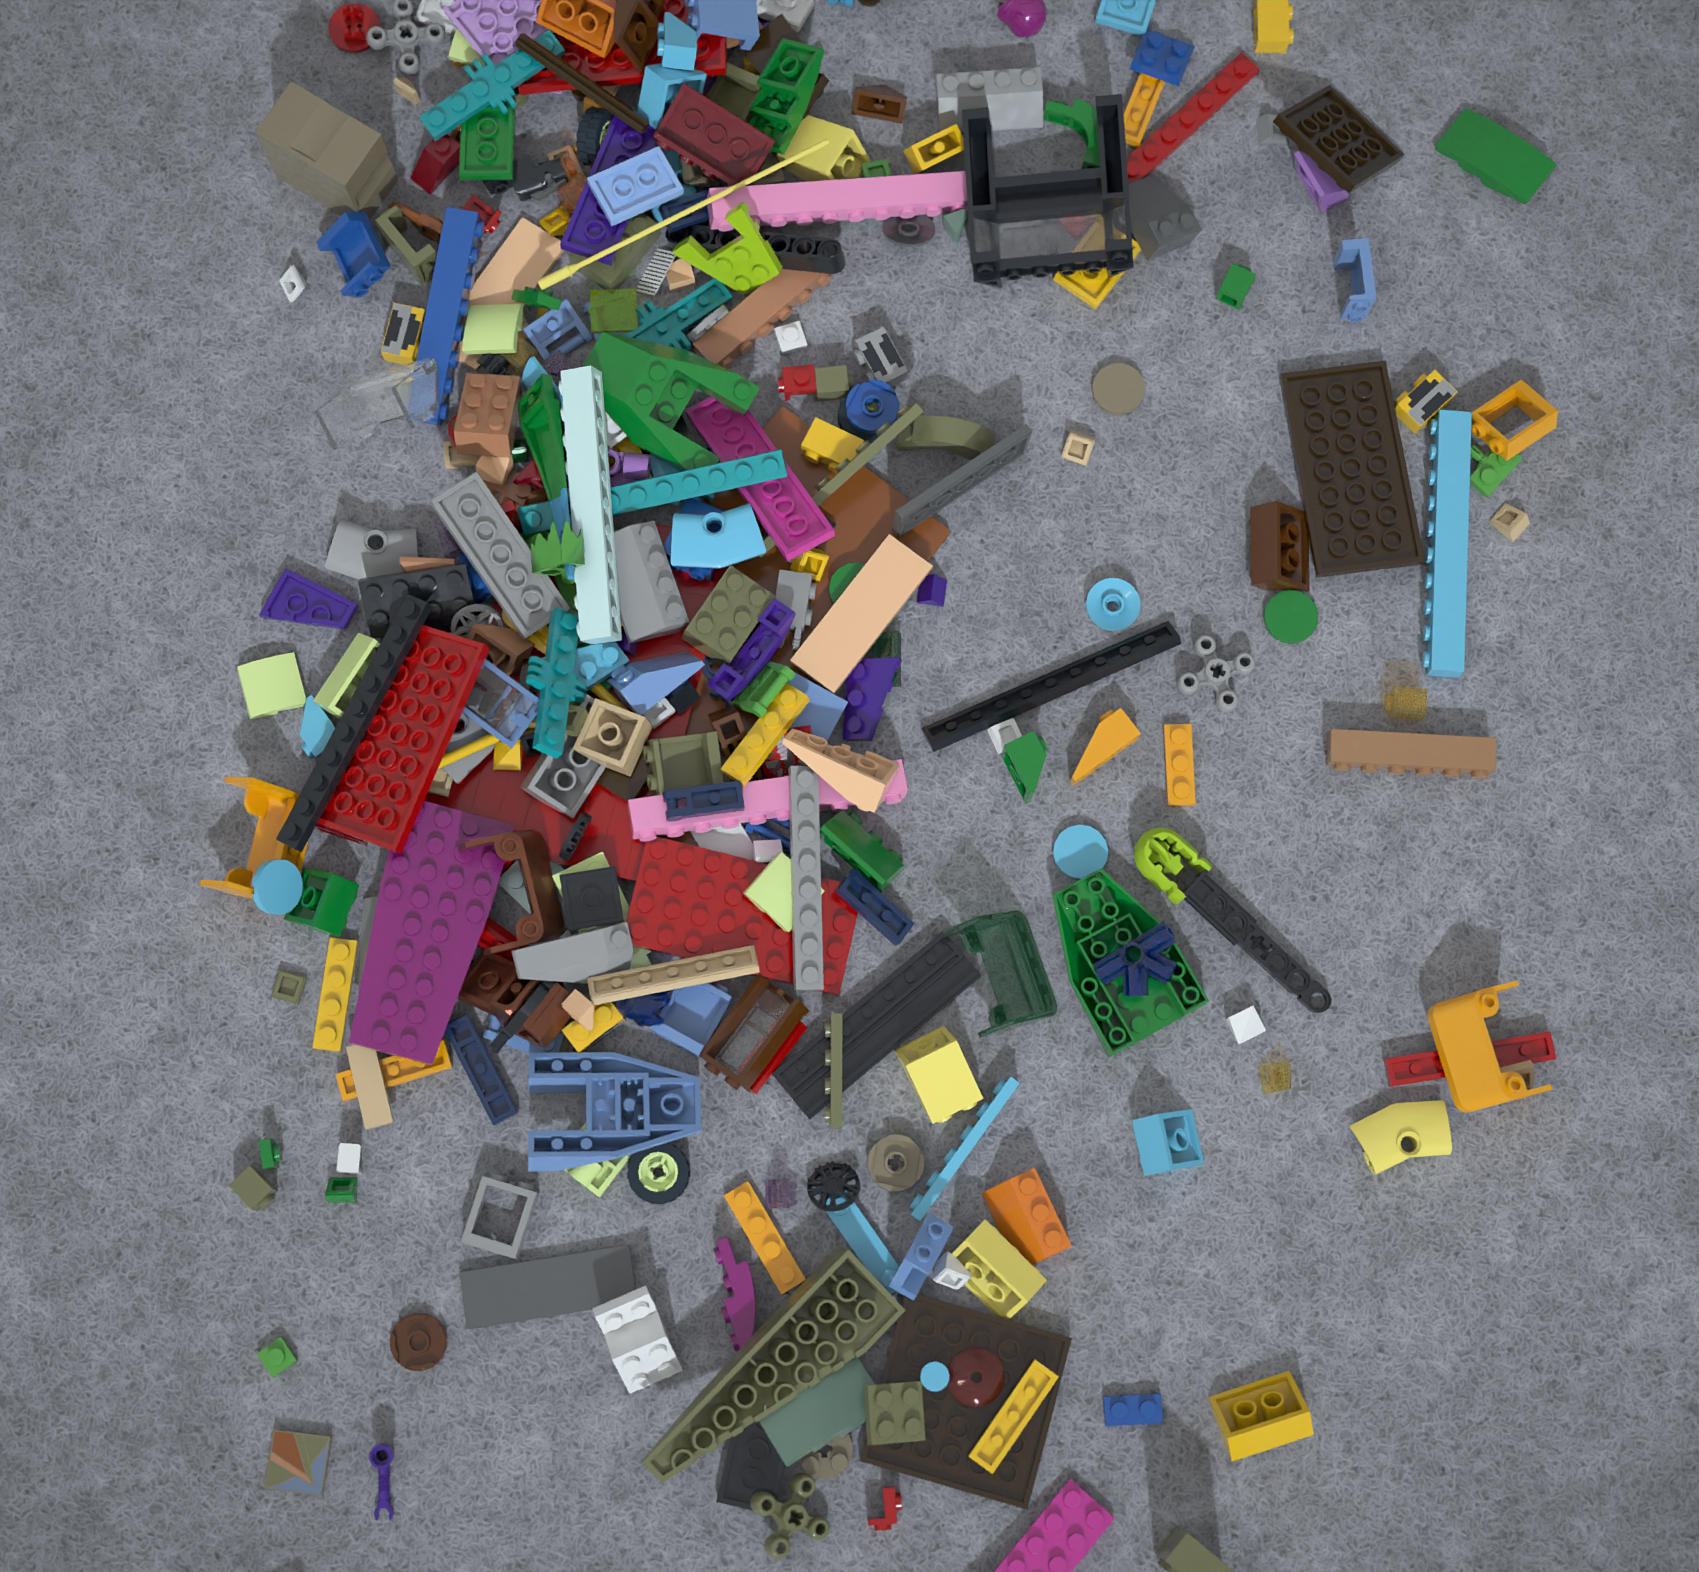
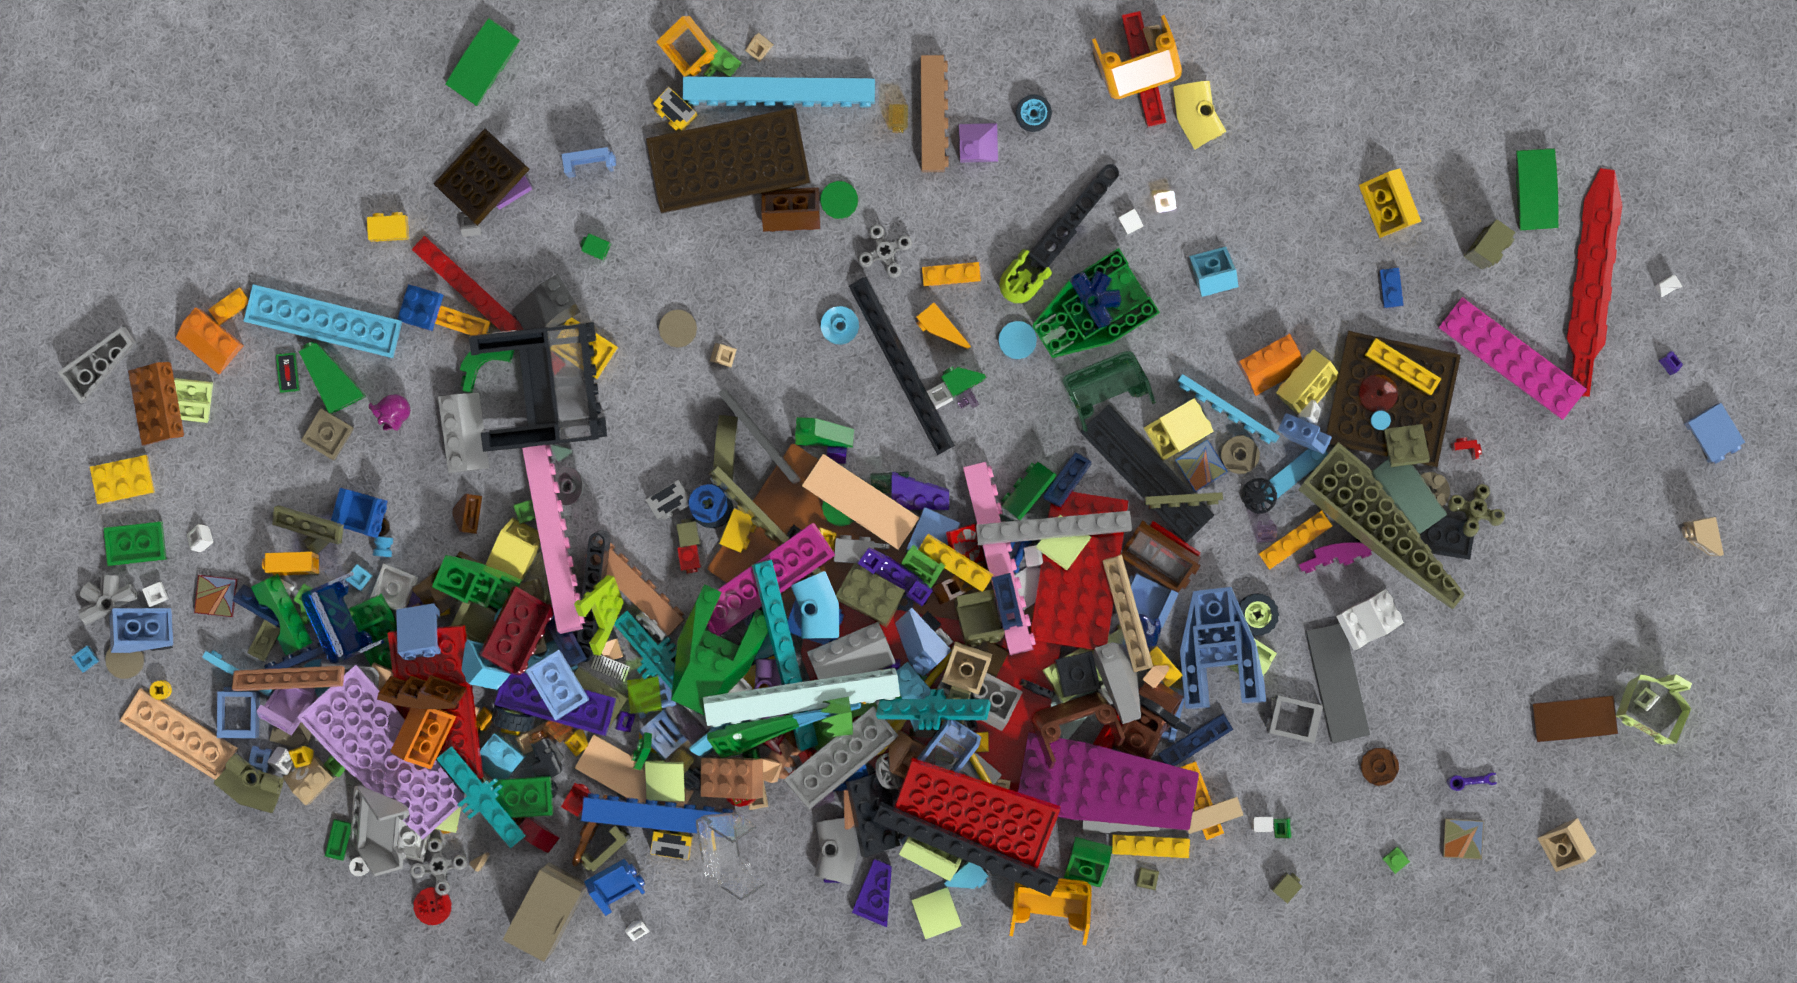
camera: 85 degrees left, 10 degrees up
(270, 1154) = (1263, 878): green plate -> none
(277, 886) = (1082, 892): medium azure tile -> none
(546, 122) = (500, 757): none -> medium azure slope
(569, 270) = (624, 727): light yellow piece -> none
(582, 83) = (479, 730): dark brown axle -> none
(582, 279) = (619, 726): none -> dark purple slope
(676, 43) = (448, 662): medium azure slope -> none
(790, 337) = (654, 566): white plate -> none
(855, 776) = (978, 502): light nougat wedge -> none
(883, 1105) = (1201, 465): none -> tile
(934, 149) = (505, 470): yellow brick -> none
(961, 570) = (822, 433): none -> green slope
(997, 776) = (969, 399): none -> clear purple tile
(1366, 813) = (978, 142): none -> medium lavender slope
(1419, 885) = (1043, 110): none -> wheel

